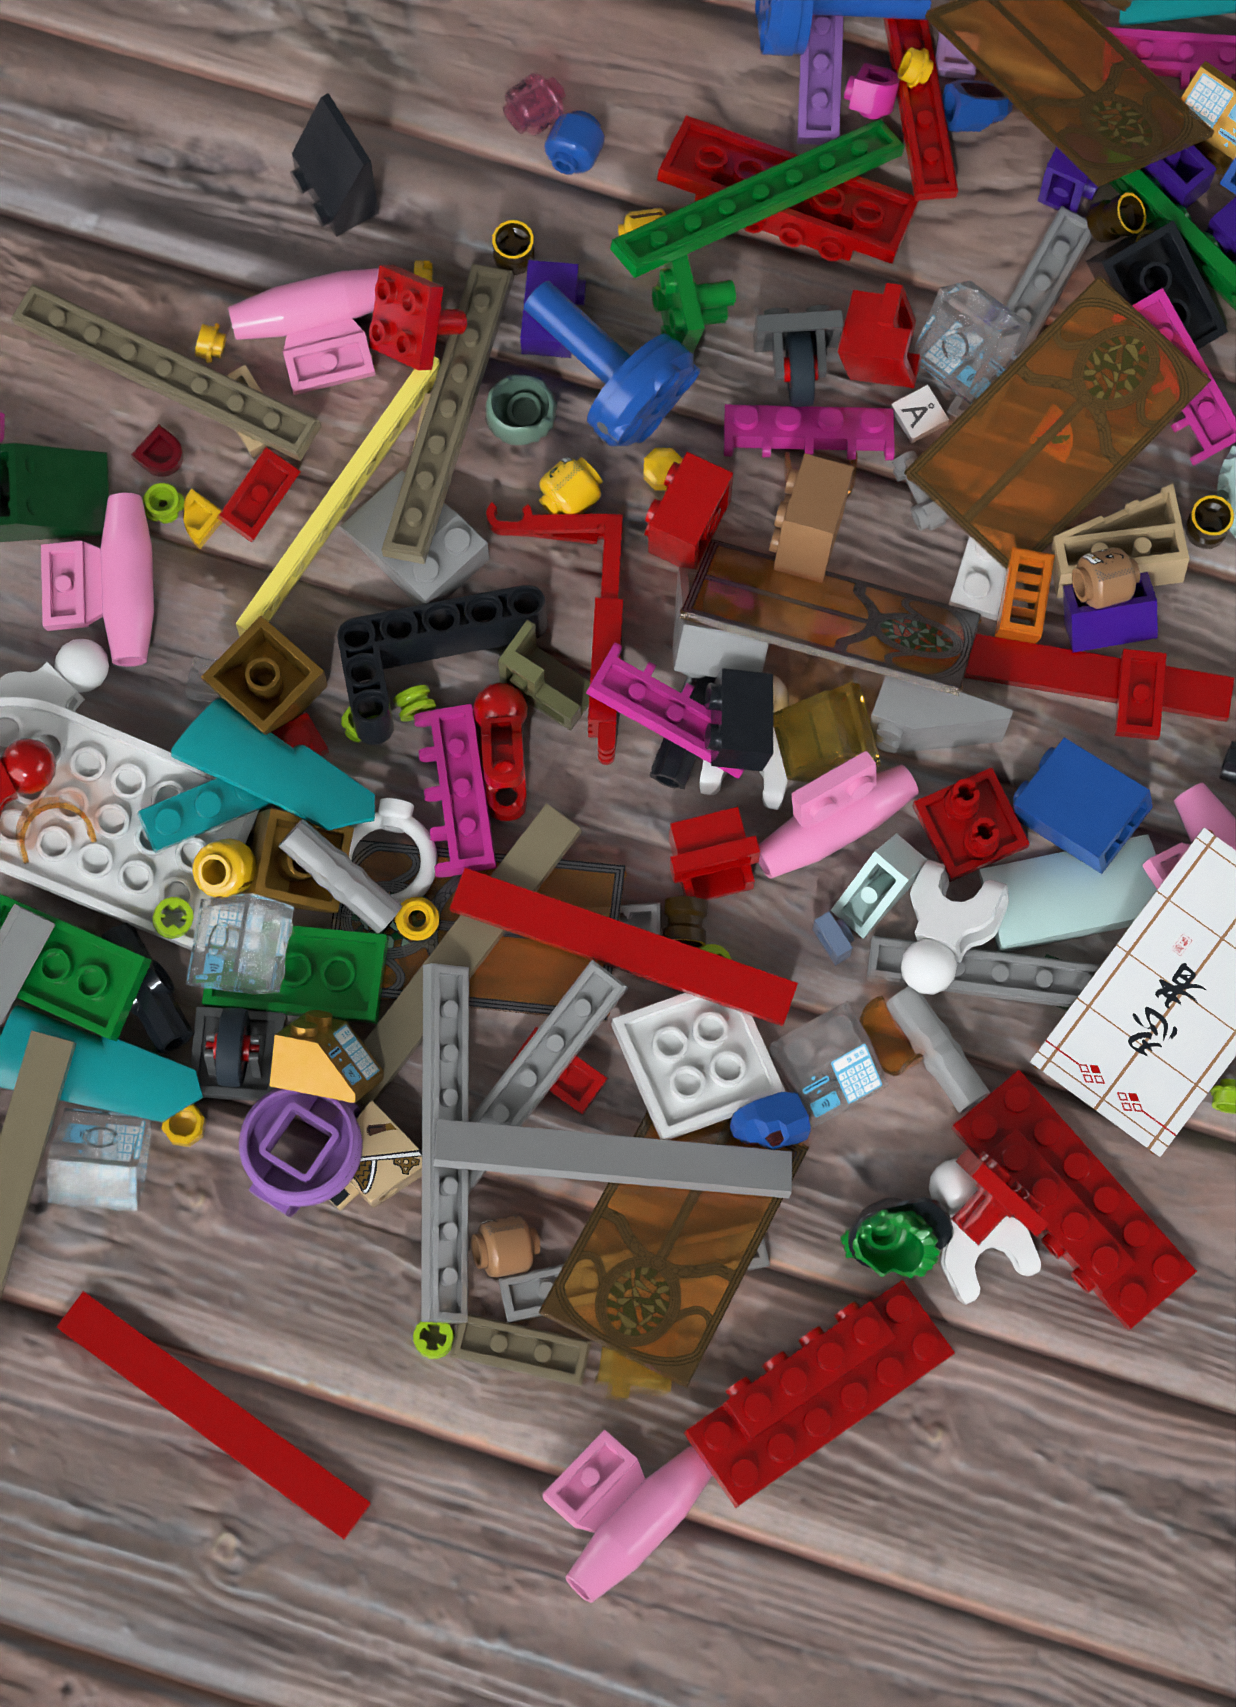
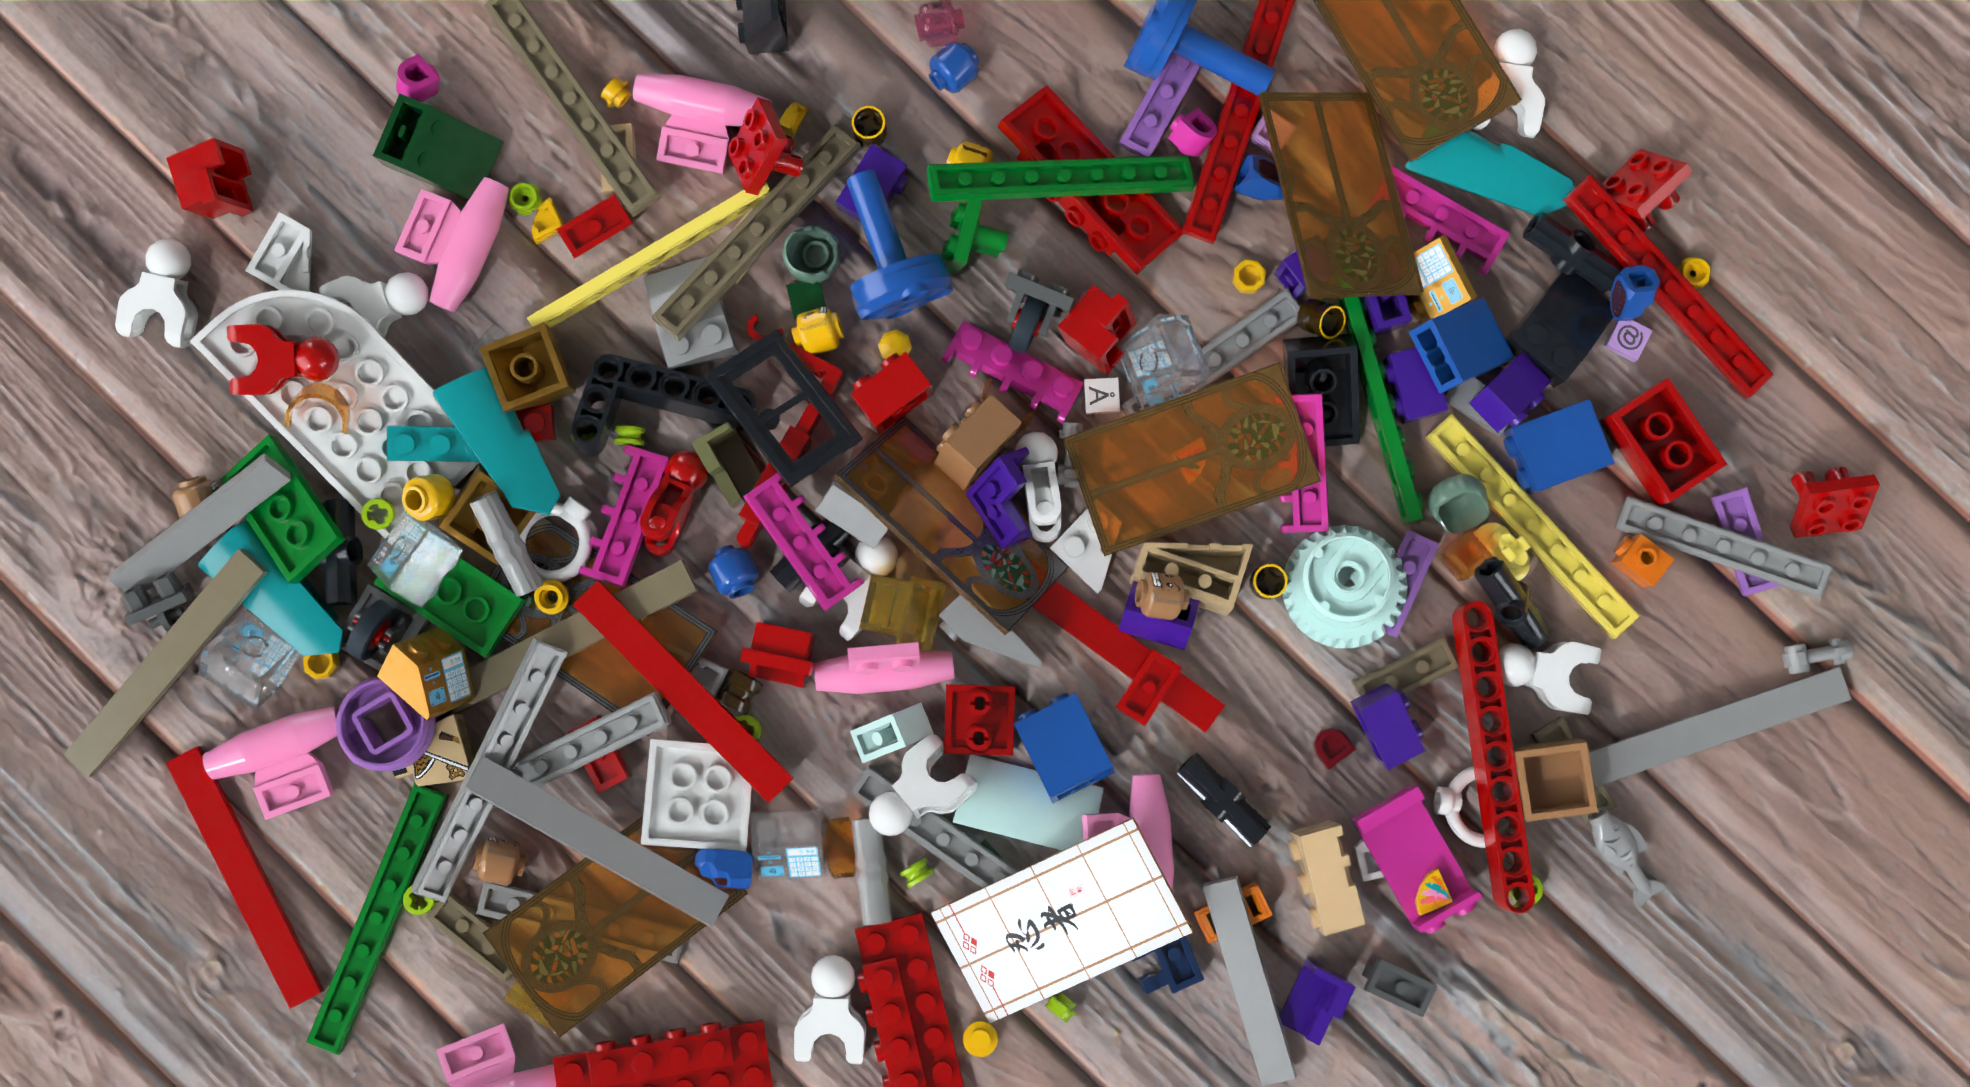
camera: 30 degrees right, 10 degrees up
(159, 453) = (542, 159): dark red tile -> none
(188, 1250) = (281, 758): none -> bright pink plate
(393, 1388) = (377, 919): none -> green tile
(533, 462) = (805, 297): none -> dark green tile
(566, 608) = (758, 426): none -> black door
(609, 794) = (733, 571): none -> blue head
(740, 719) = (842, 572): black brick -> none
(834, 937) = (840, 754): sand blue plate -> none
(860, 566) = (992, 498): none -> dark purple panel
(899, 1236) = (772, 993): green hair -> none
(907, 535) = (1041, 485): none -> white piece
(915, 67) = (1231, 131): yellow plate -> none
(989, 1025) = (917, 872): none -> lime bush
(994, 1200) = (844, 1011): red plate -> none
(1013, 213) = (1249, 276): none -> yellow tile
(1017, 631) = (1105, 591): orange slope -> none
(1159, 1177) = (980, 1038): none -> yellow plate

